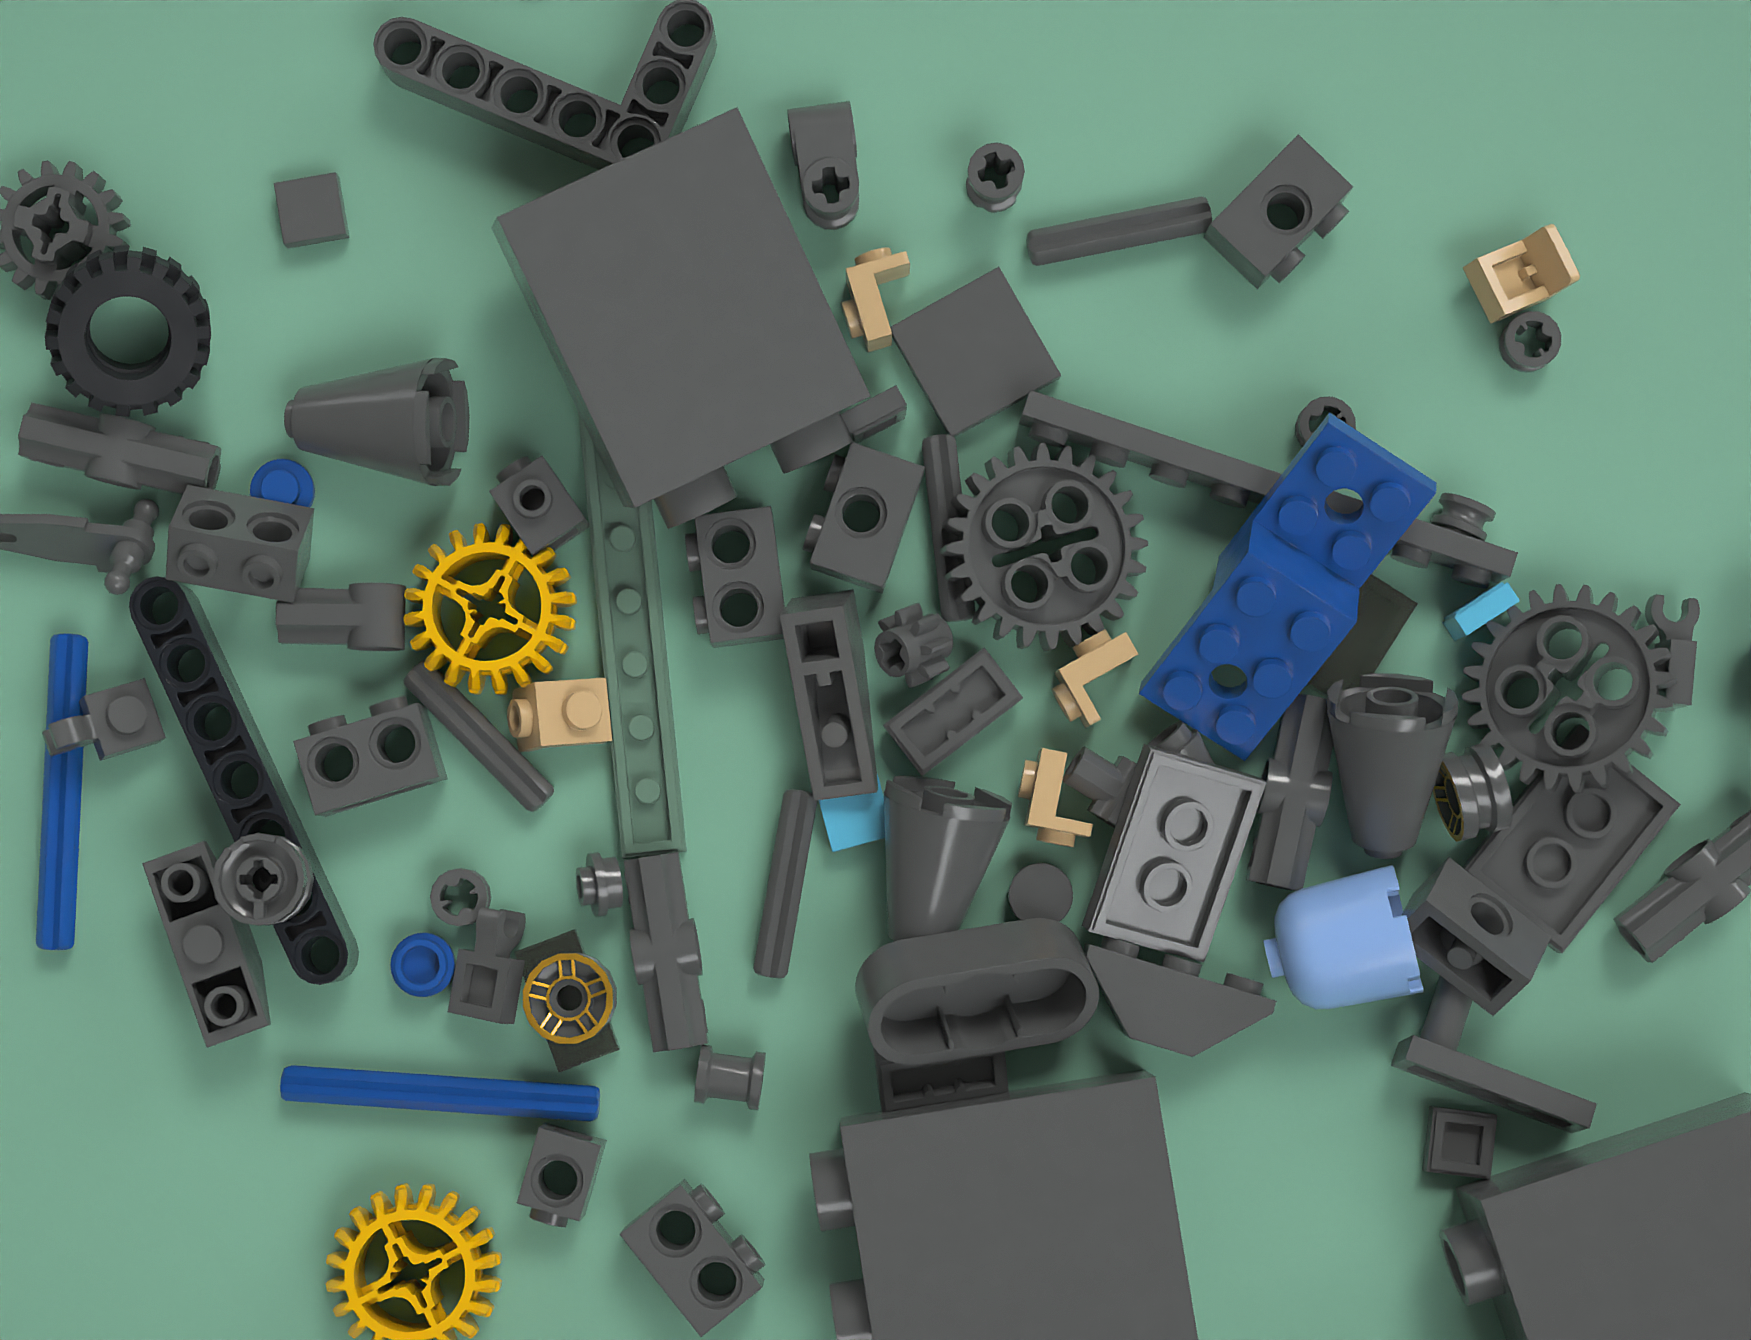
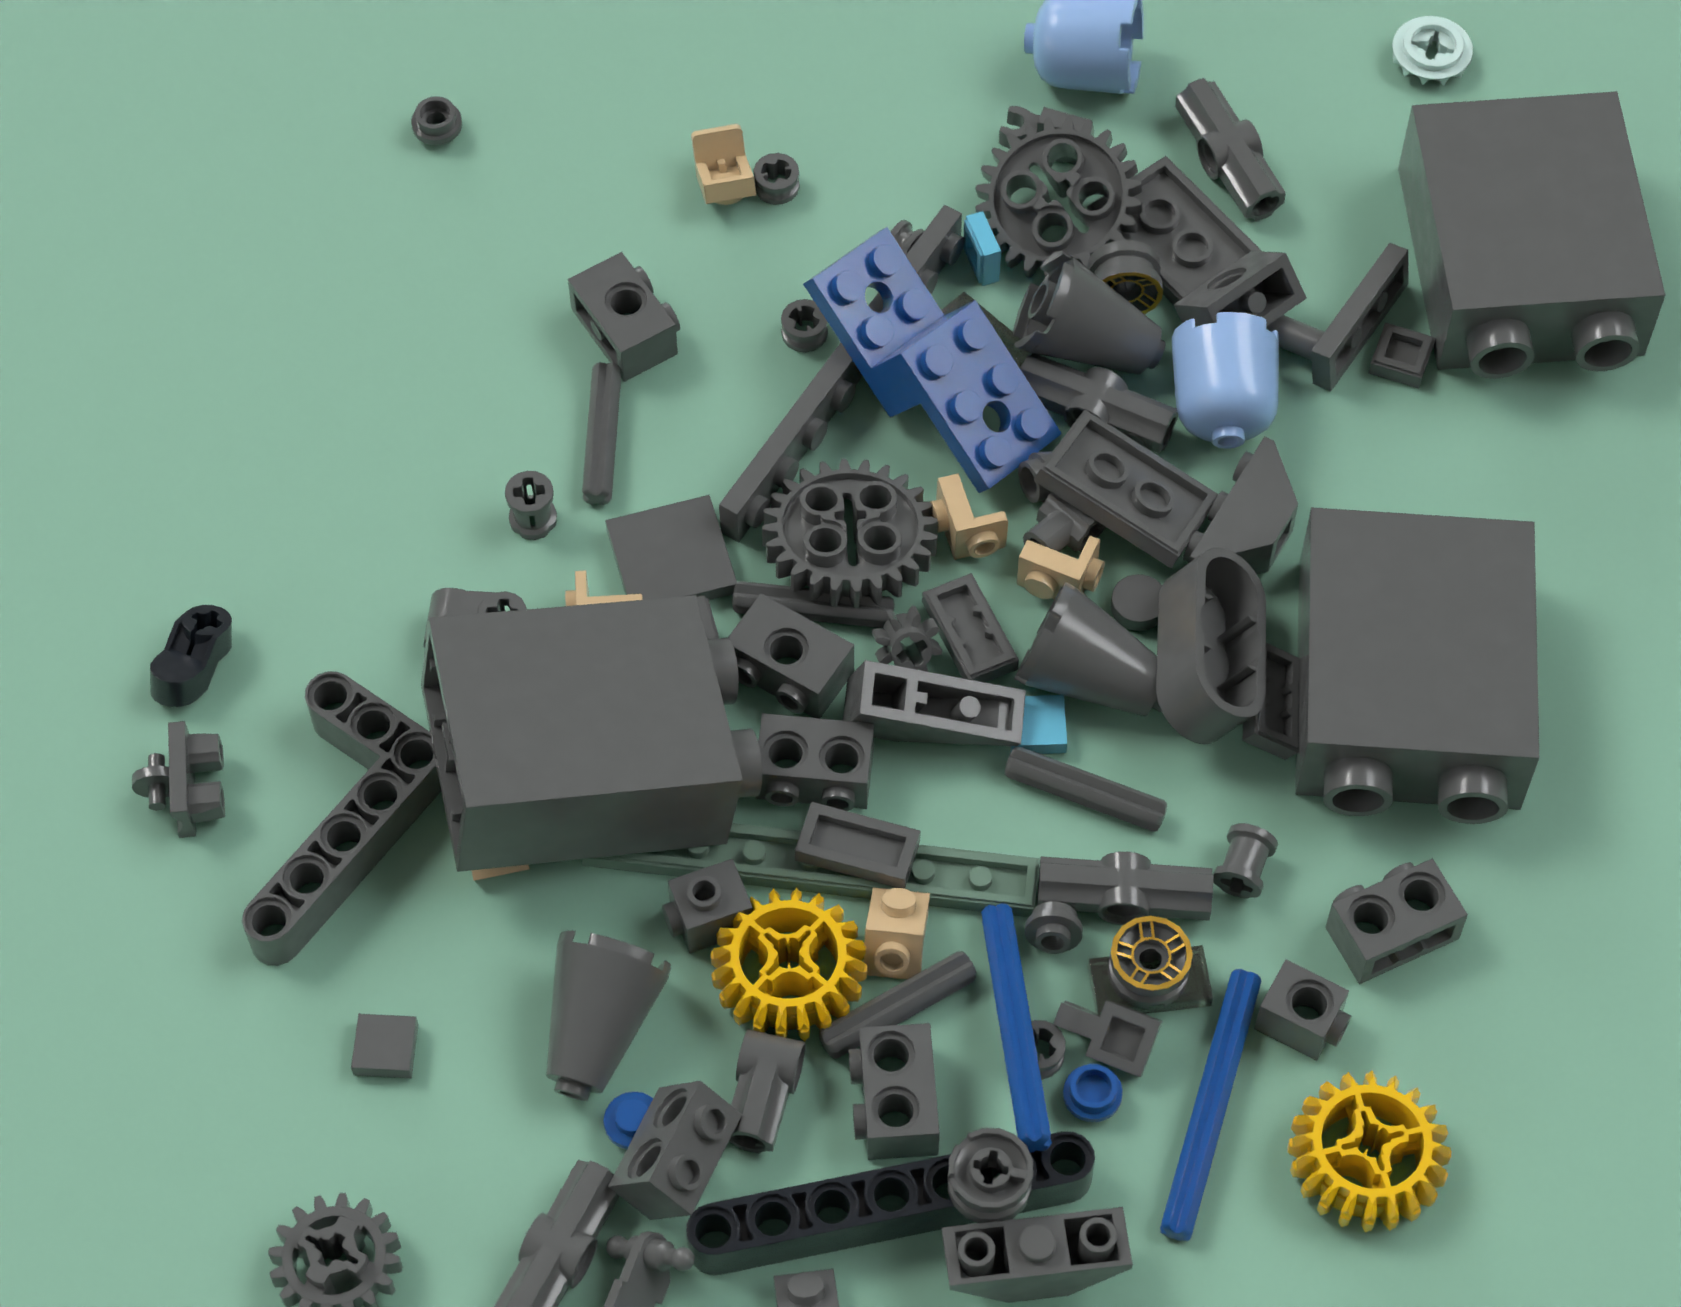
camera: 75 degrees left, 25 degrees down
(118, 383) = (429, 1234): black tyre -> none
(462, 868) = (1016, 1028): none -> blue axle
(645, 649) = (857, 845): none -> dark grey tile

